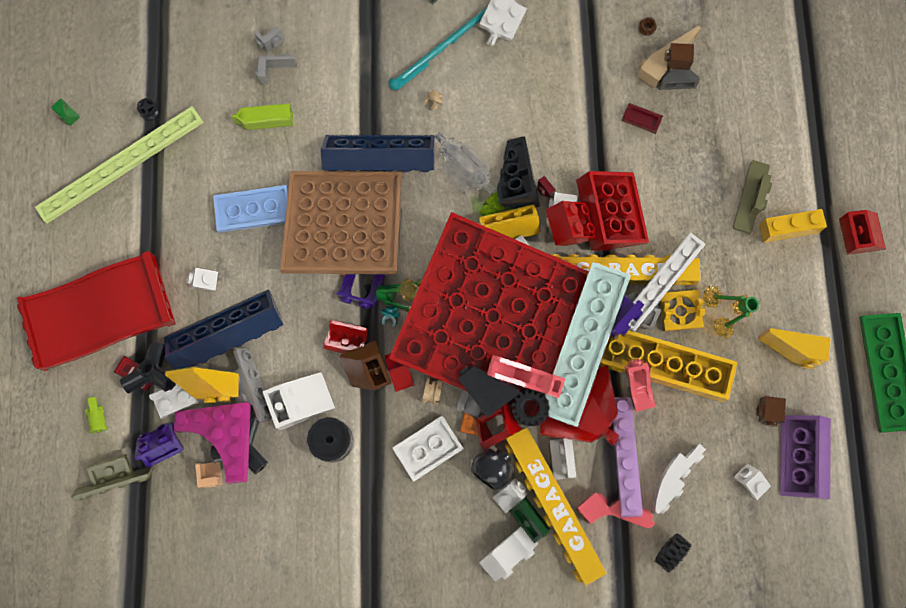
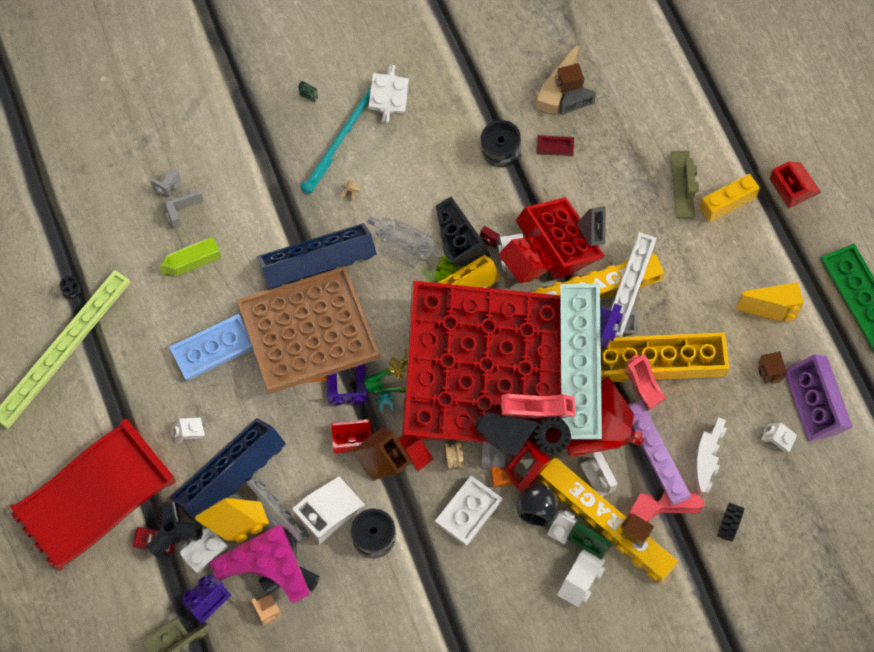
camera: 25 degrees left, 10 degrees down
(95, 416) = (131, 593): lime hinge -> none
(577, 530) = (636, 530): none -> reddish brown brick
(590, 99) = (501, 143): none -> black wheel
(649, 210) = (593, 225): none -> dark grey slope
(650, 22) = (528, 56): reddish brown plate -> none
(696, 323) = (663, 290): yellow piece -> none
(743, 306) = (712, 281): plant -> none

